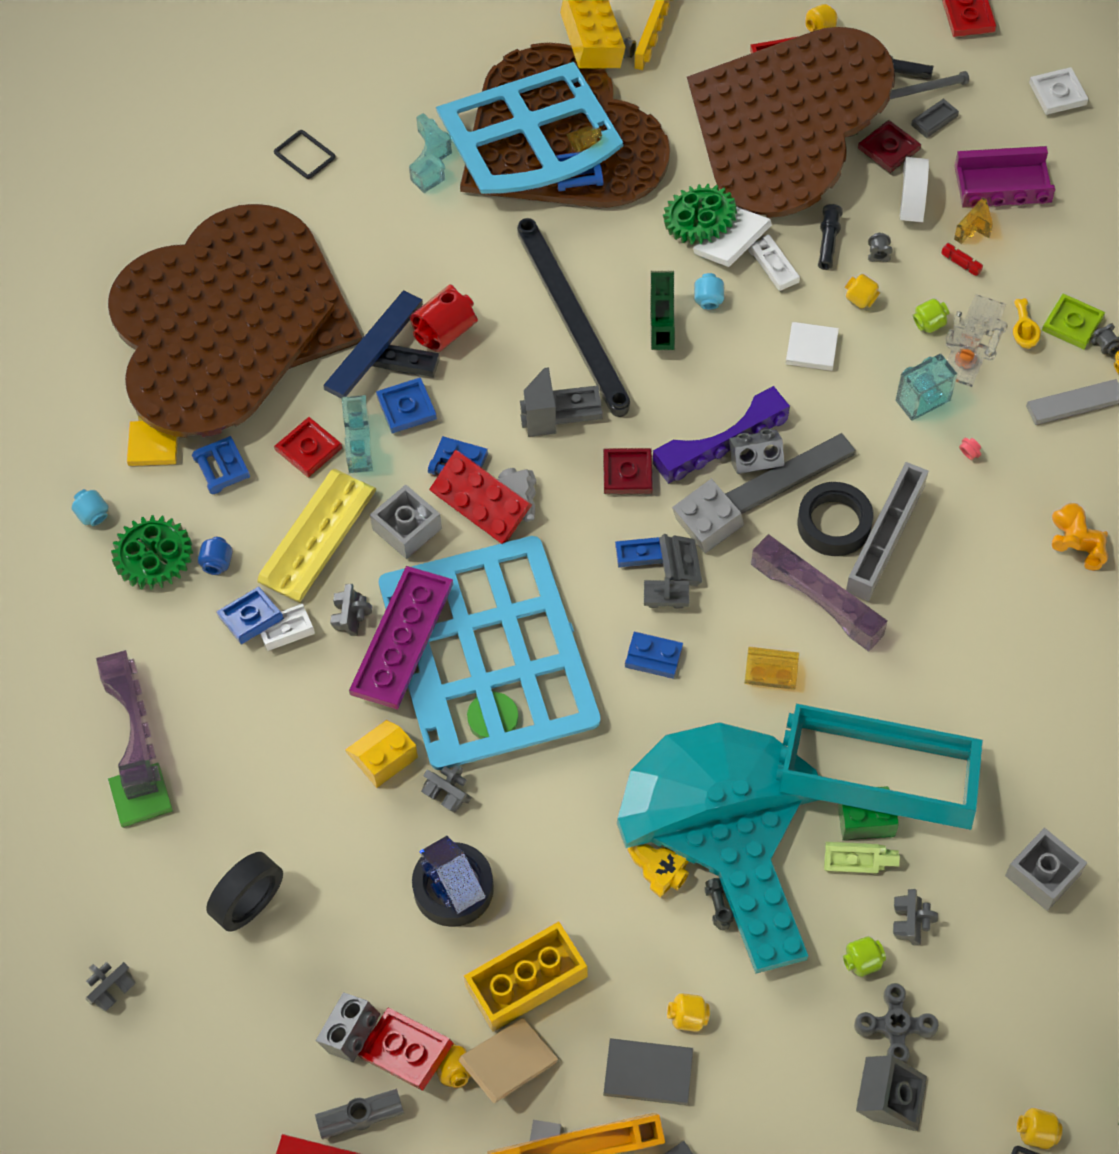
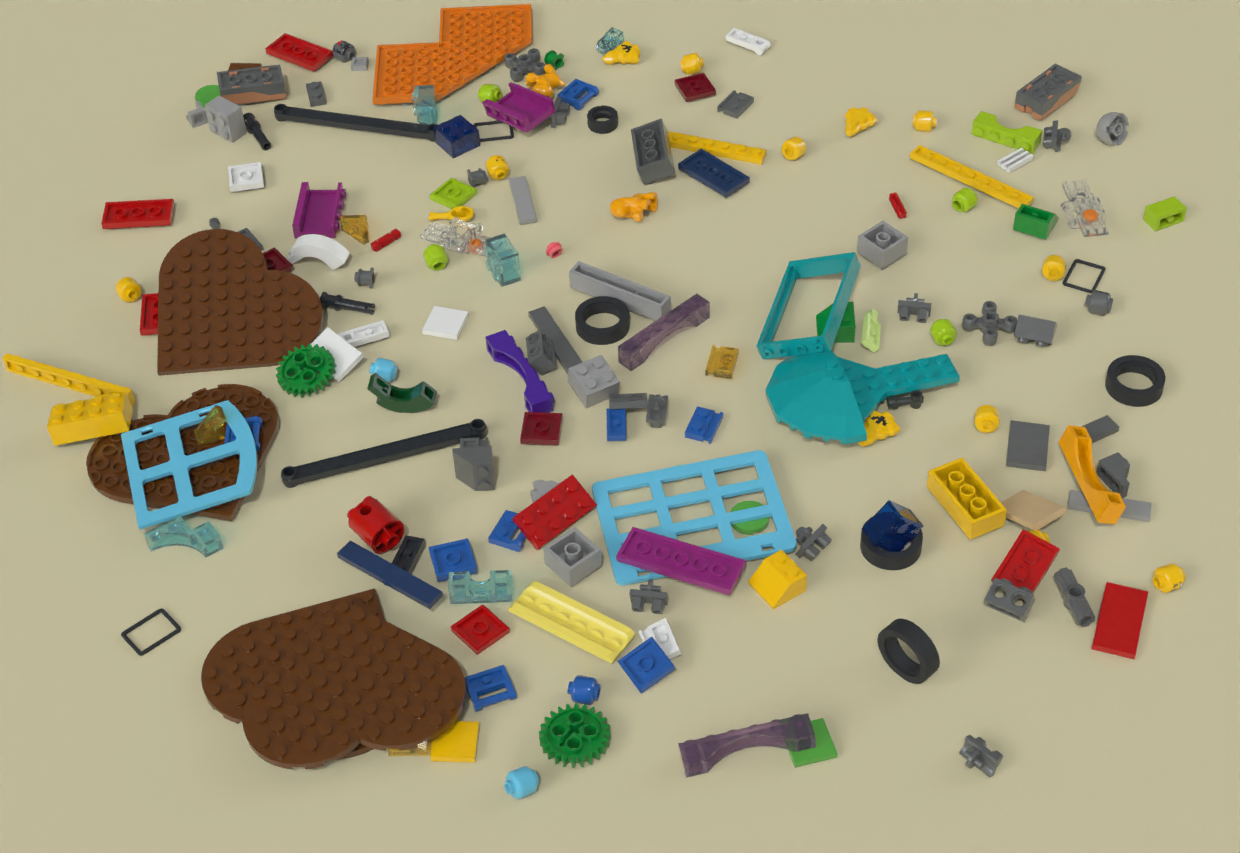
camera: 85 degrees left, 15 degrees down
(862, 291) = (404, 289): yellow head -> none

